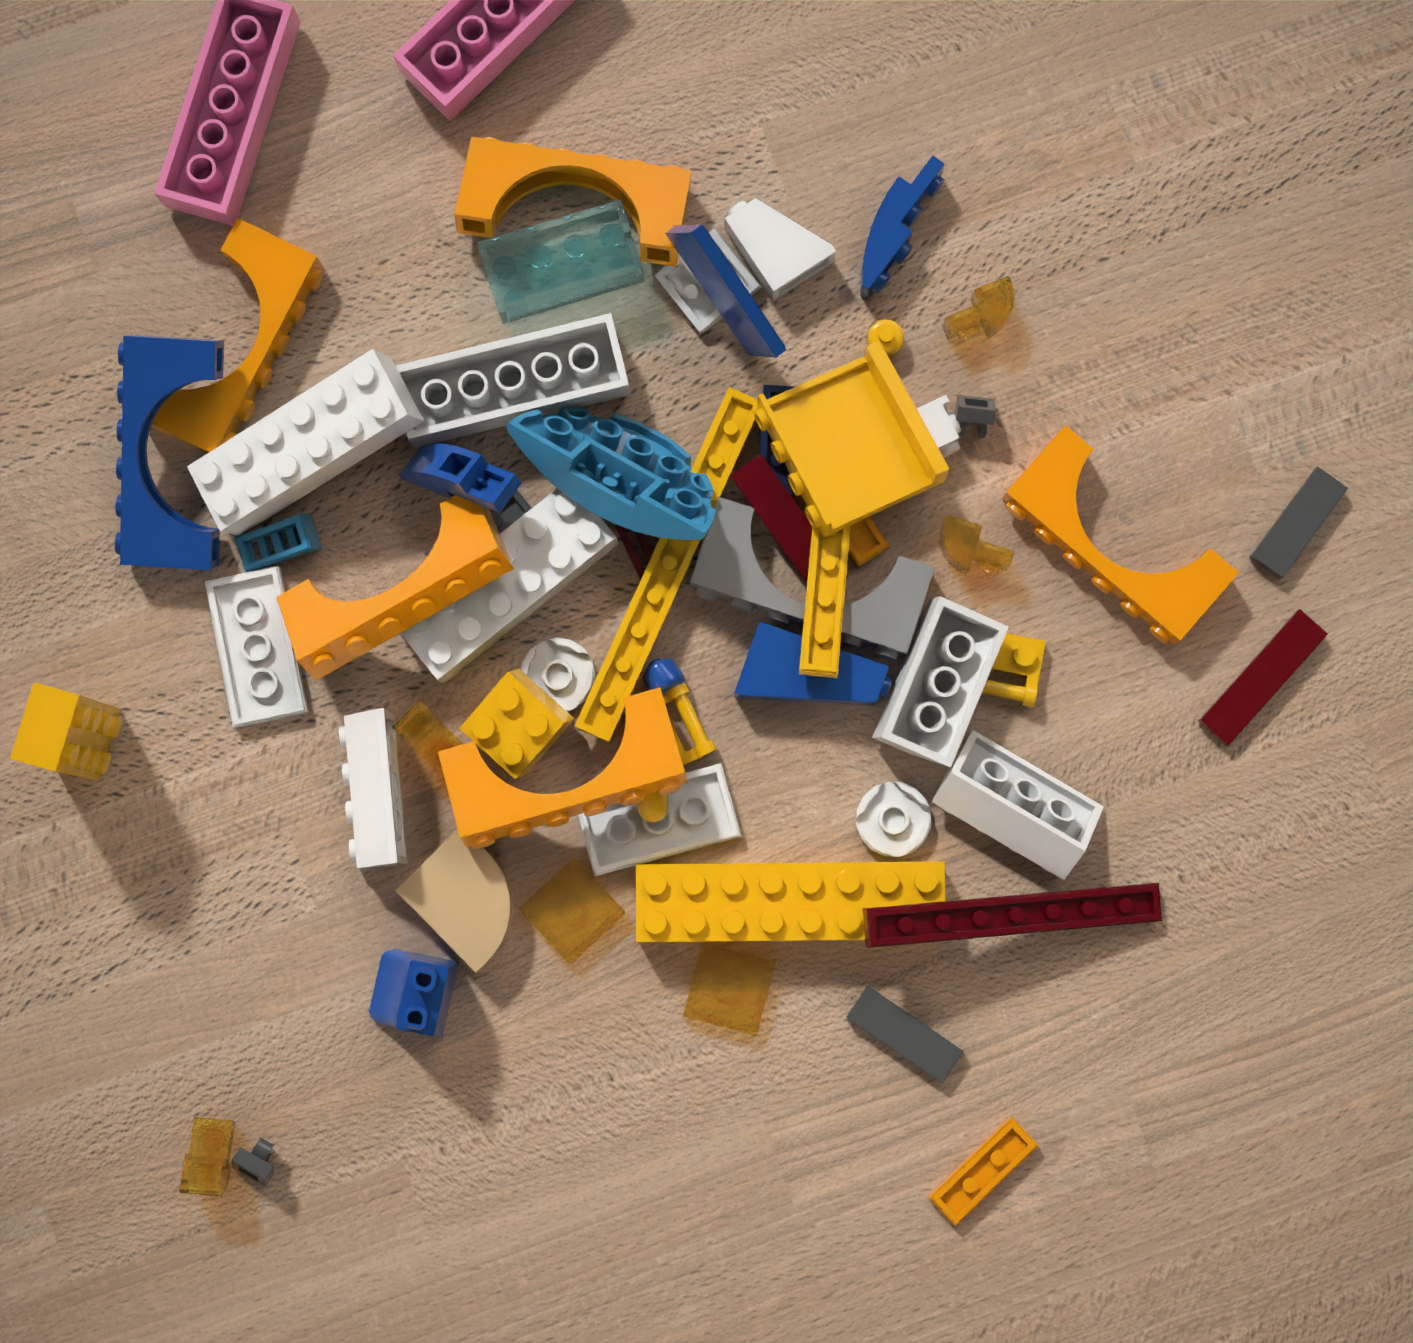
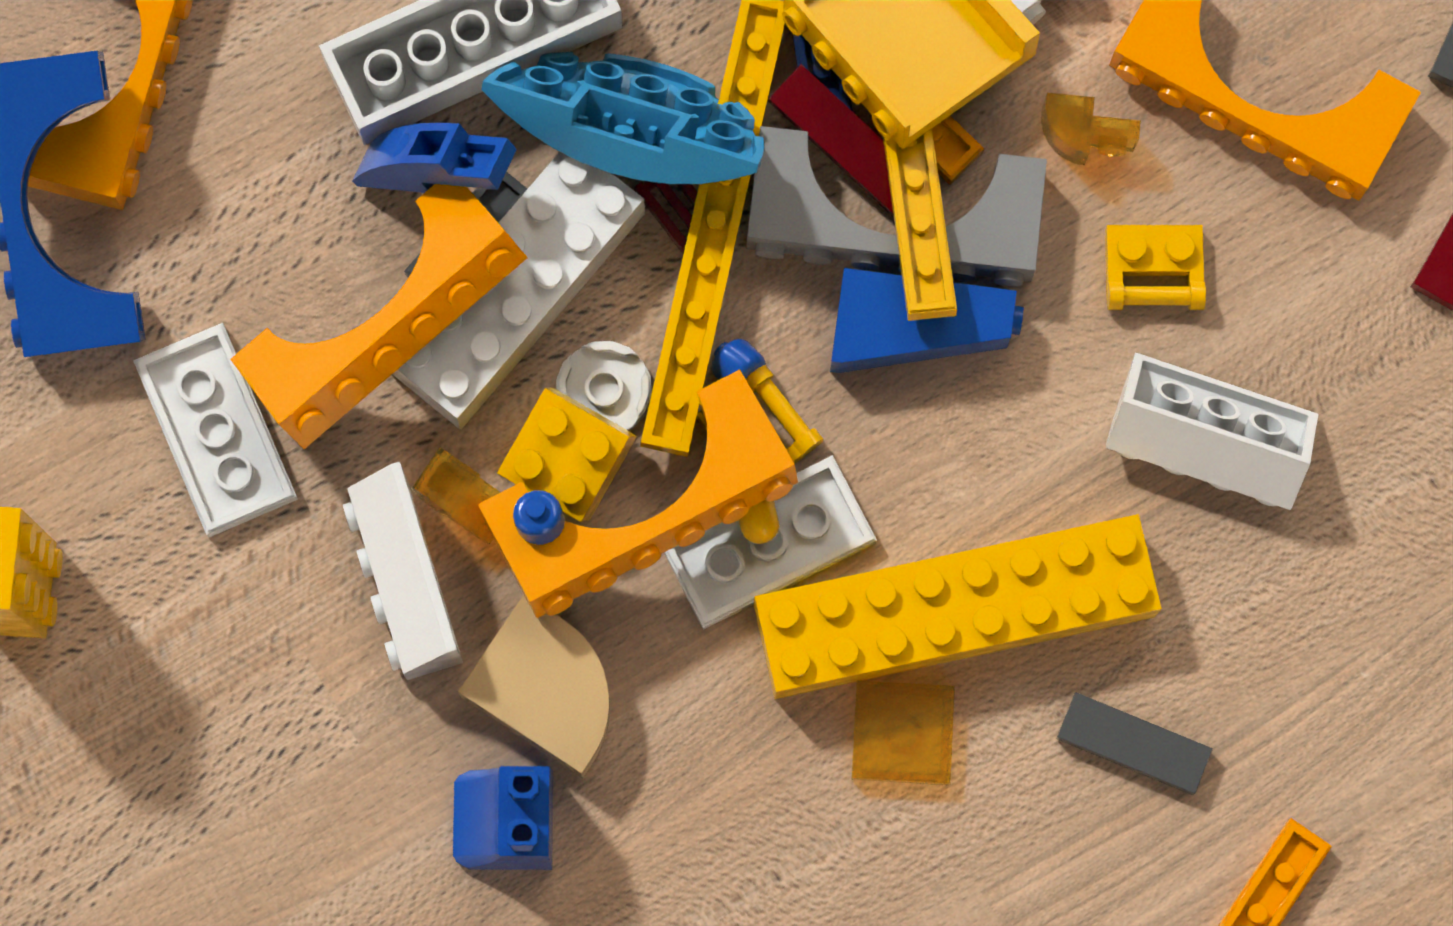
camera: 20 degrees left, 5 degrees down
(305, 443) = (230, 160): white brick -> none
(307, 533) = (241, 300): dark azure slope -> none
(480, 773) = (538, 517): none -> blue piece
(572, 910) = (684, 676): clear yellow tile -> none
(893, 819) = (1061, 481): white tile -> none
(940, 681) = (1084, 298): white slope -> none
(1011, 915) = (1235, 563): dark red tile -> none

